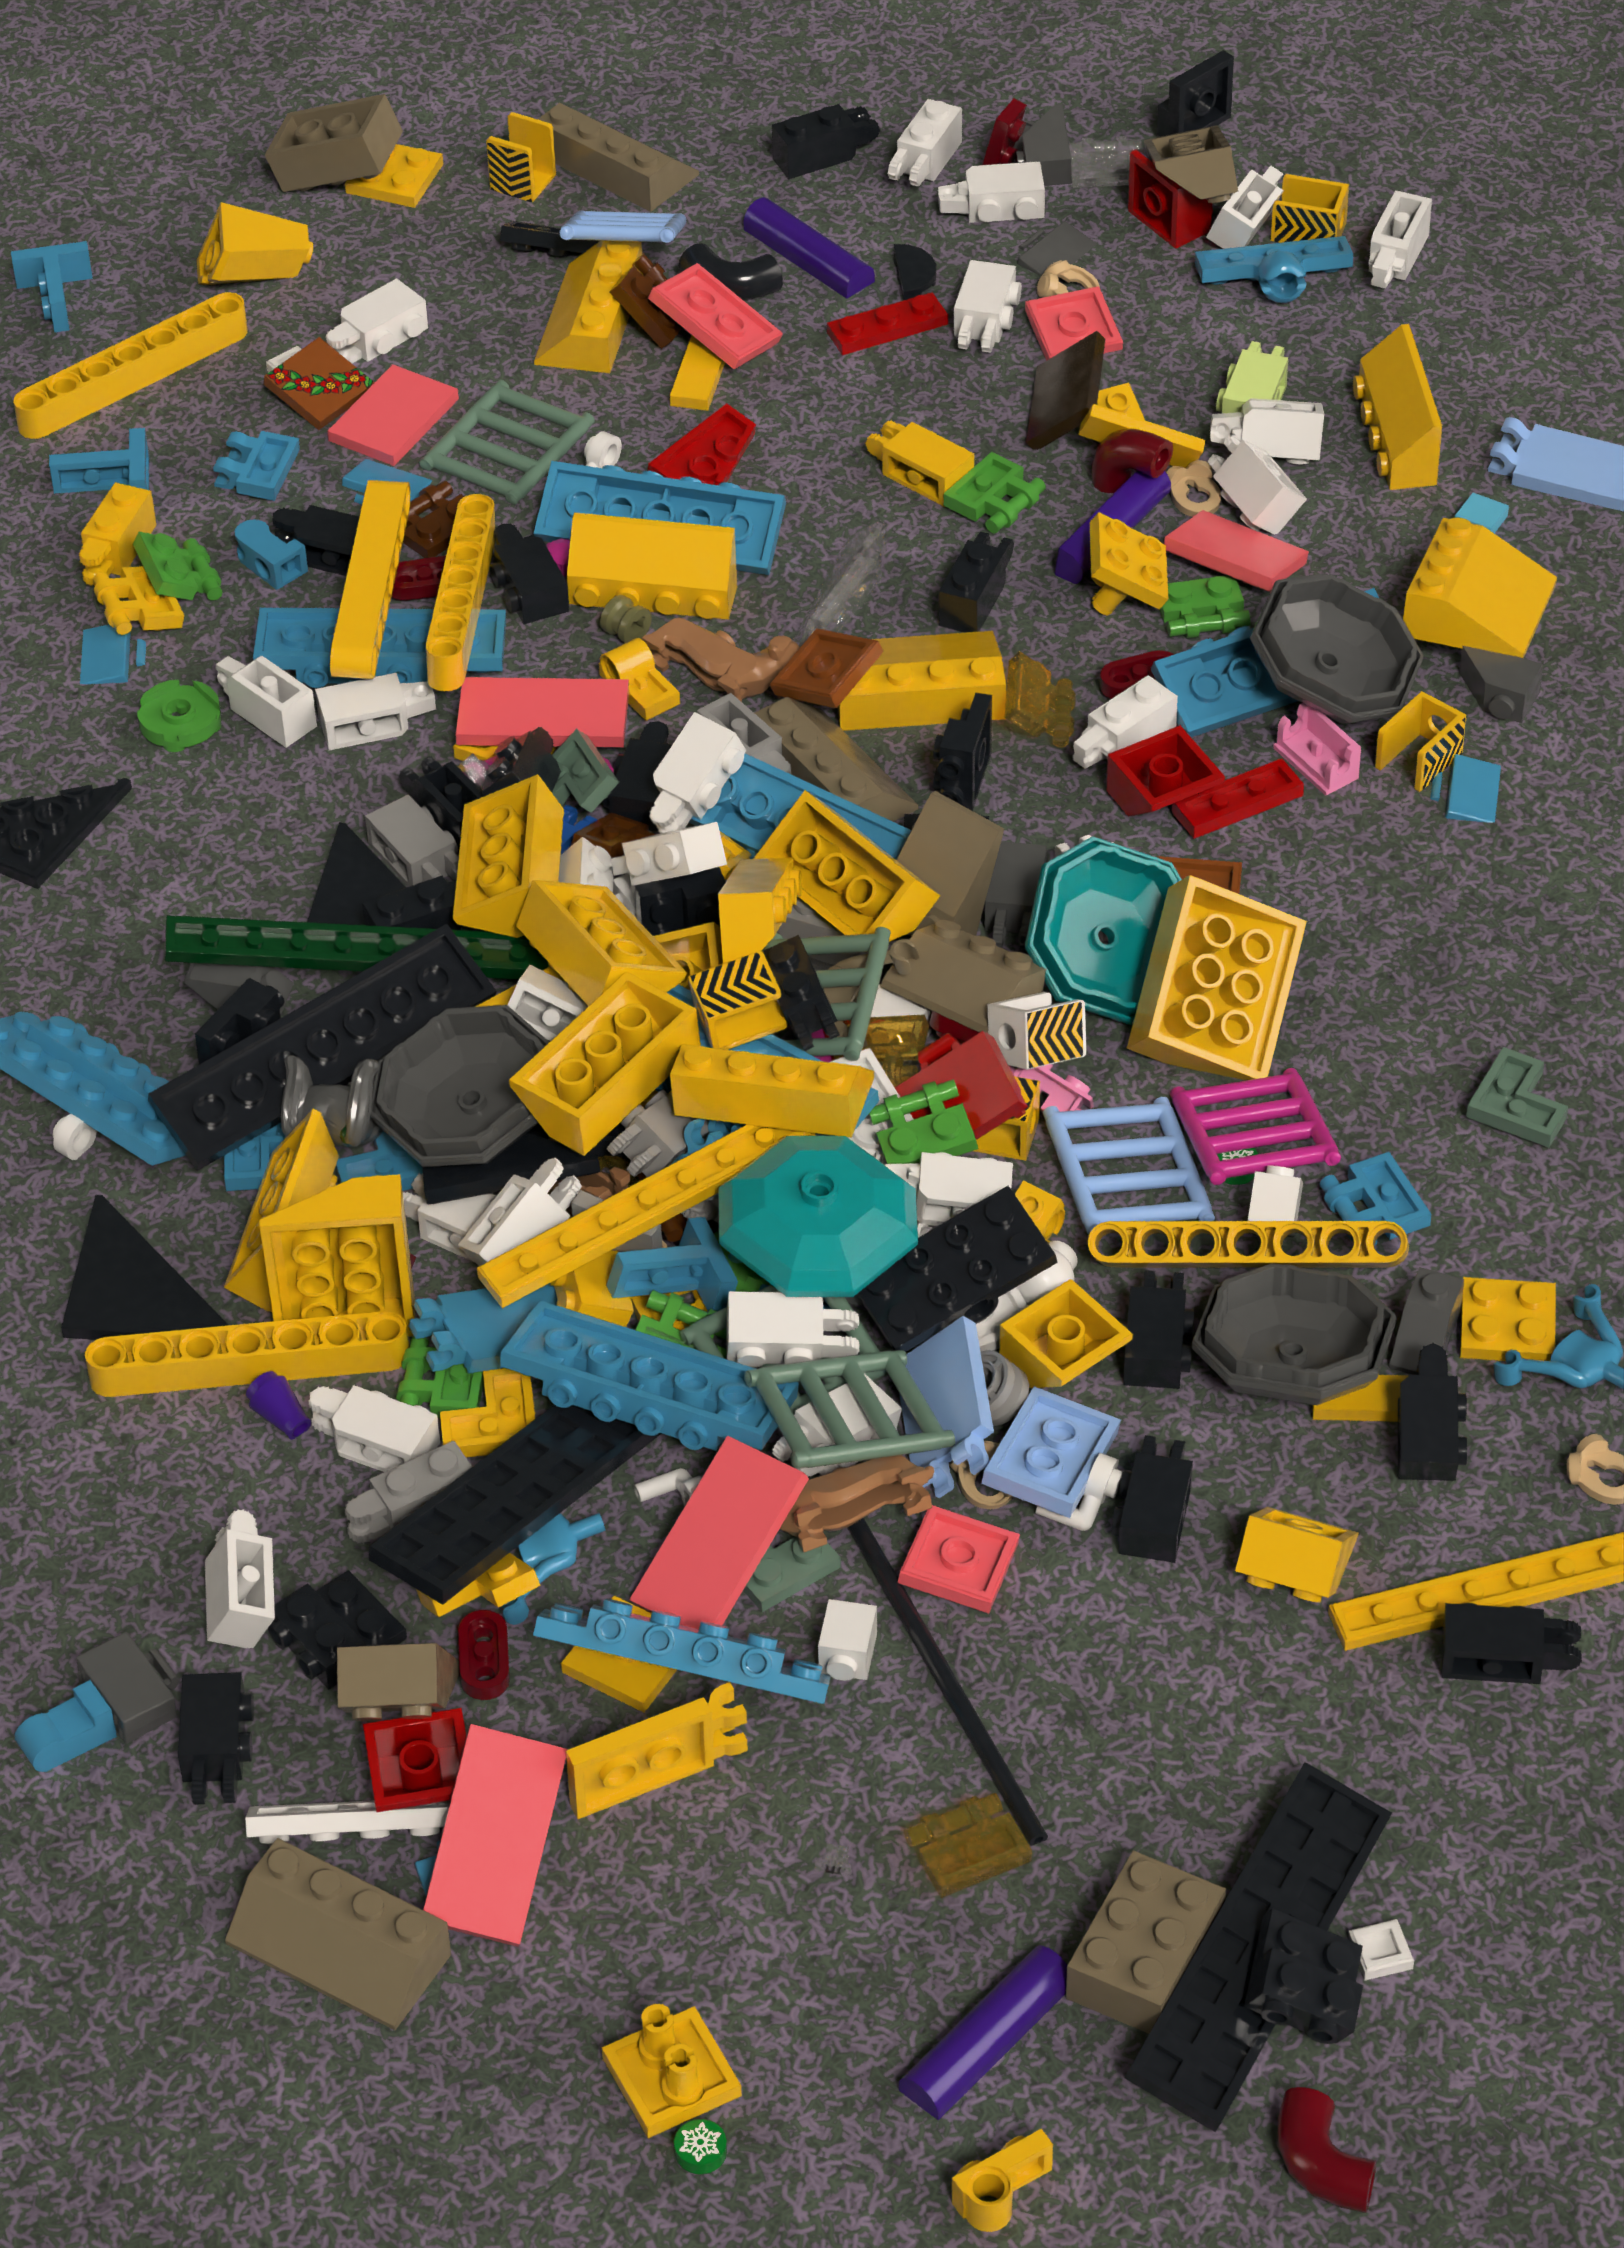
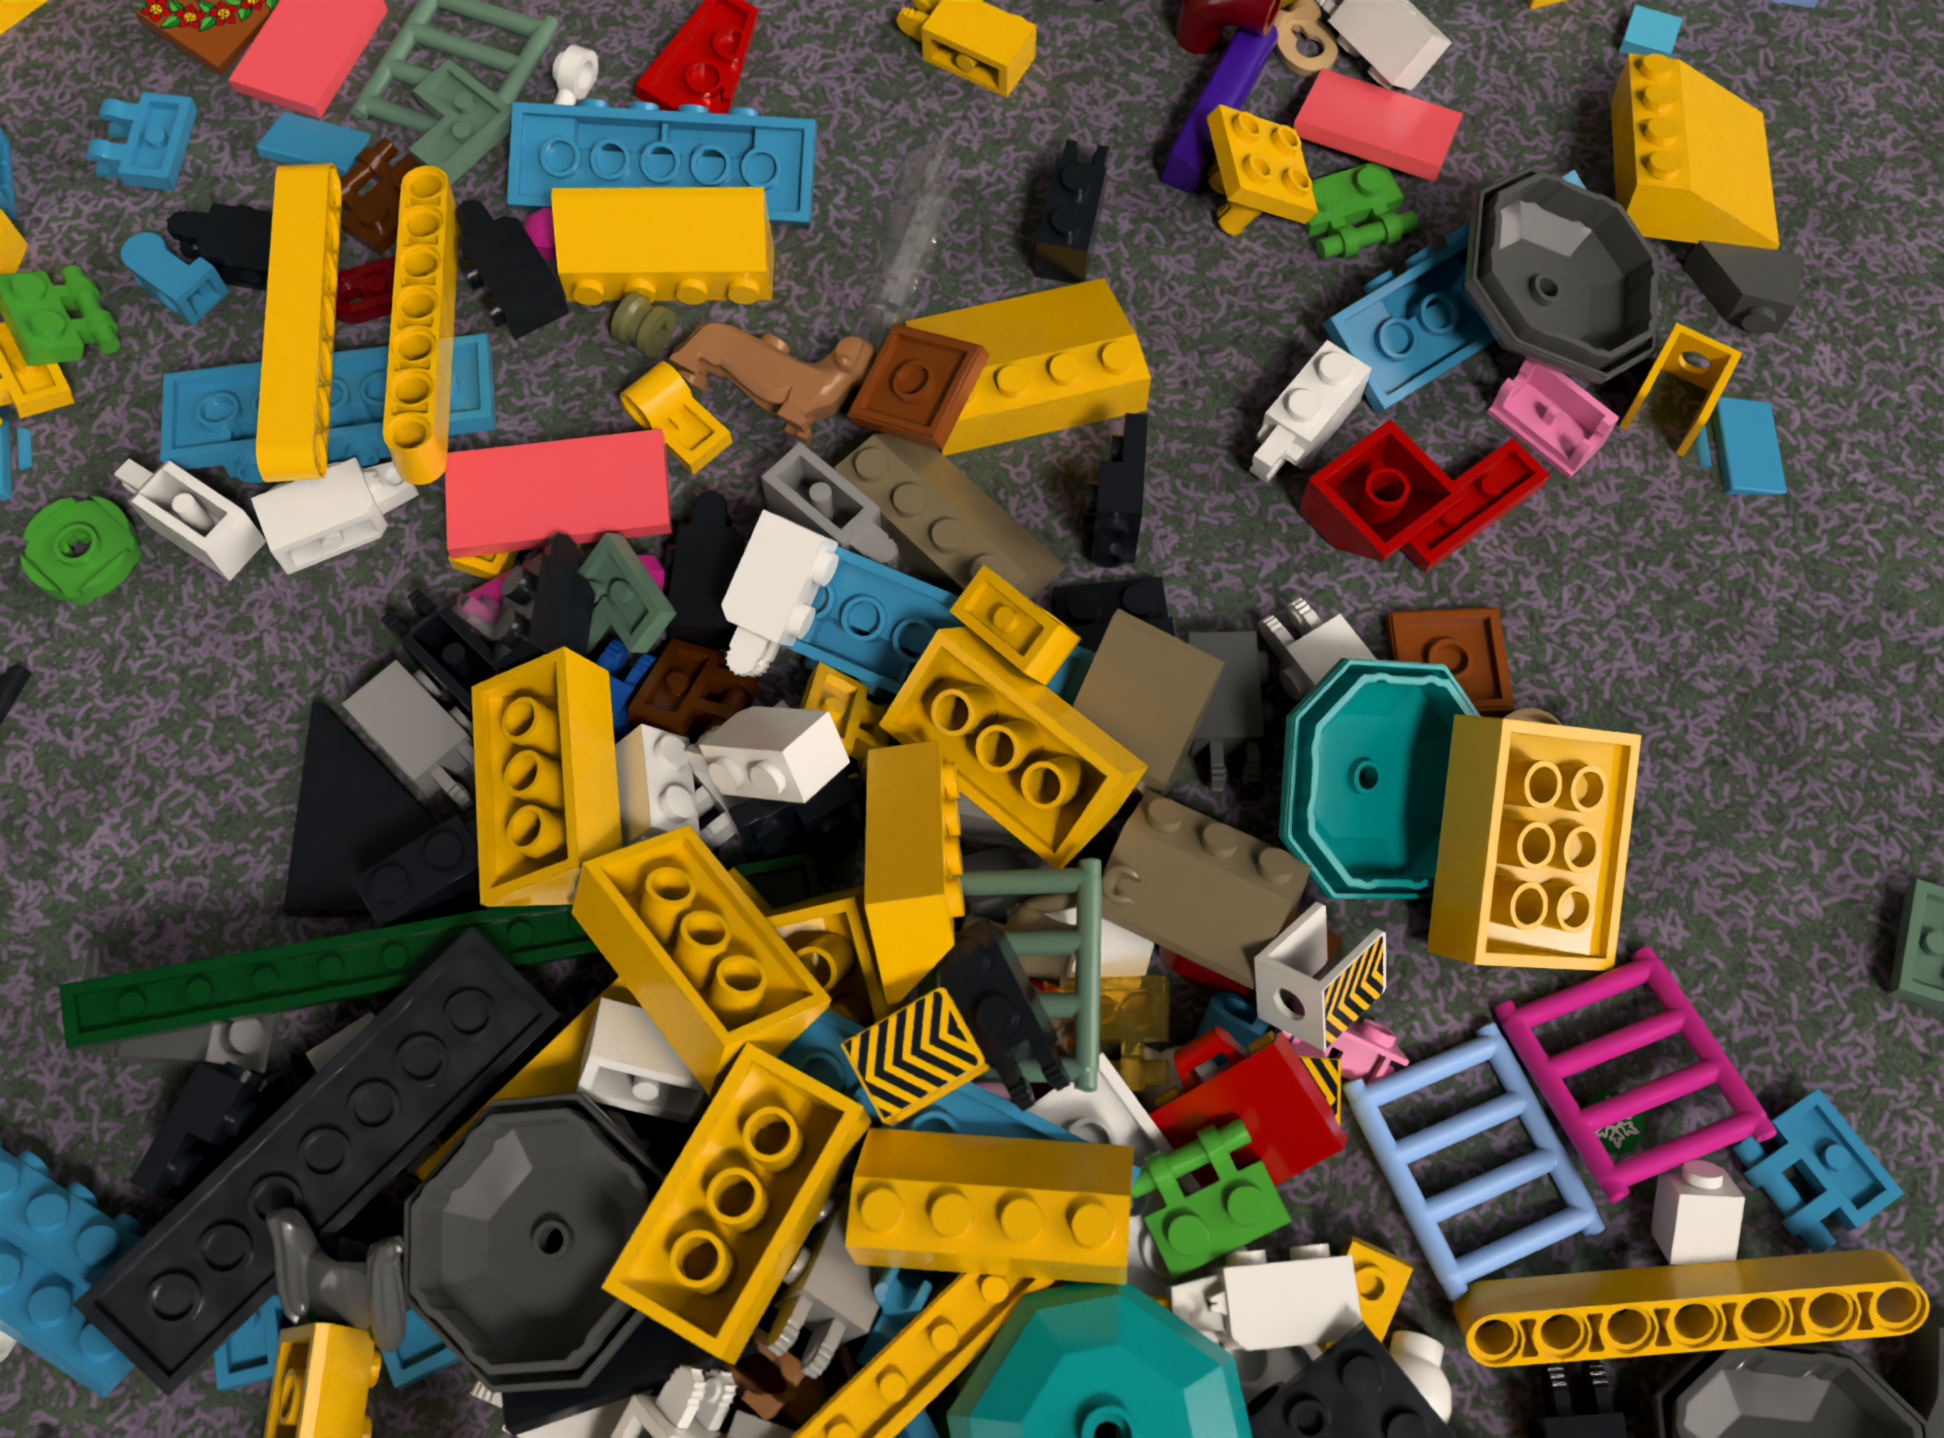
camera: 10 degrees left, 20 degrees up
(512, 470) = (469, 121): none -> sand green plate
(865, 805) = (1015, 625): none -> yellow plate
(986, 485) = (1053, 64): bright green plate -> none
(1031, 695) = (1179, 387): clear yellow plate -> none
(1124, 673) = (1297, 326): dark red plate -> none

